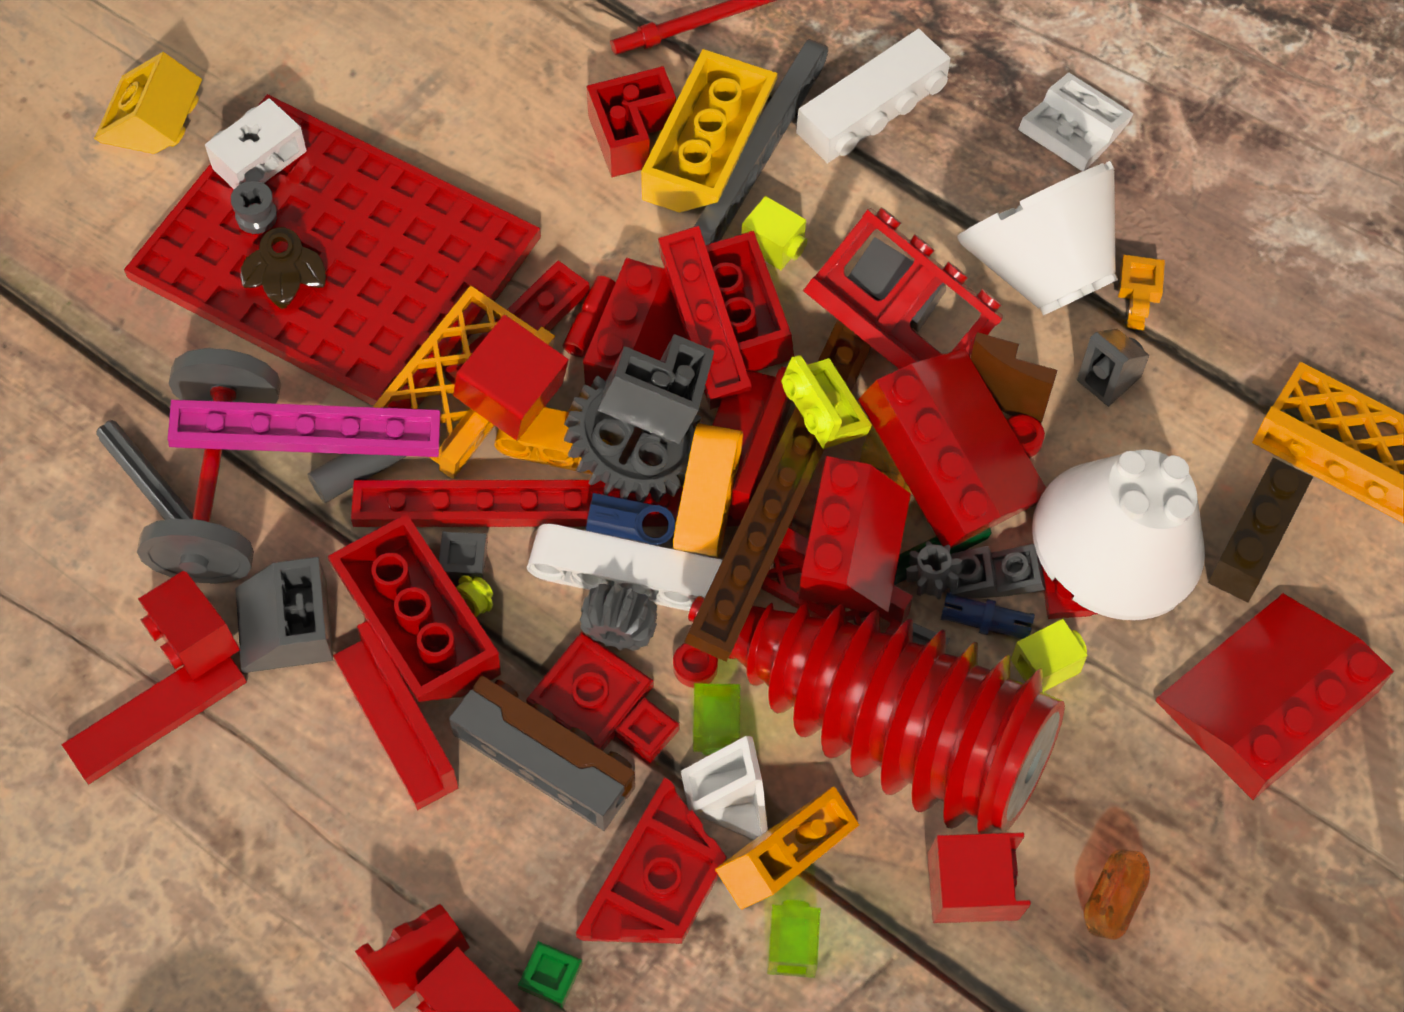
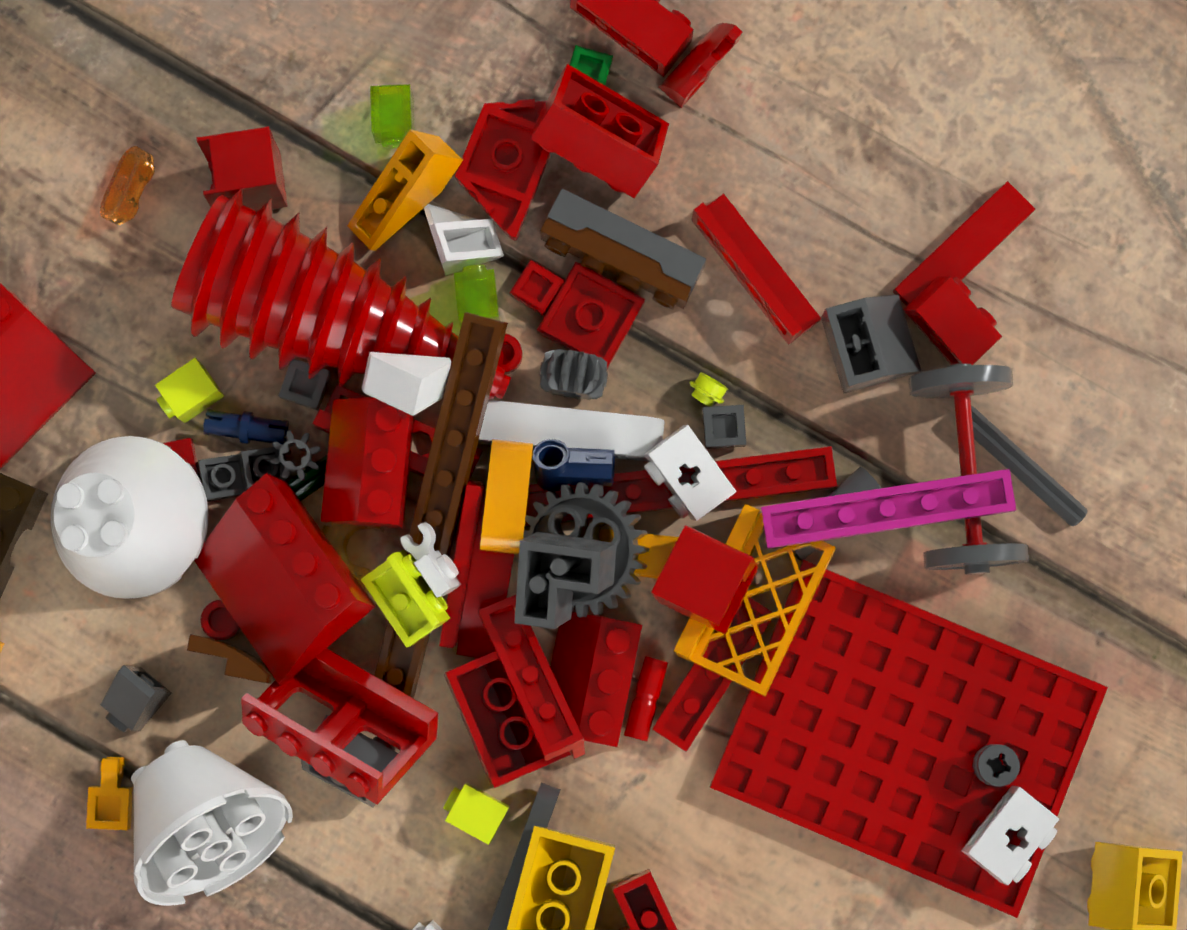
camera: 175 degrees right, 20 degrees up
(282, 271) = (952, 694): dark brown plate -> none
(416, 611) = (755, 353): red slope -> none
(510, 494) = (709, 484): none -> white brick
(545, 882) = (600, 132): none -> red slope
(792, 420) = (435, 568): none -> white plate
(804, 588) = (406, 380): none -> white slope

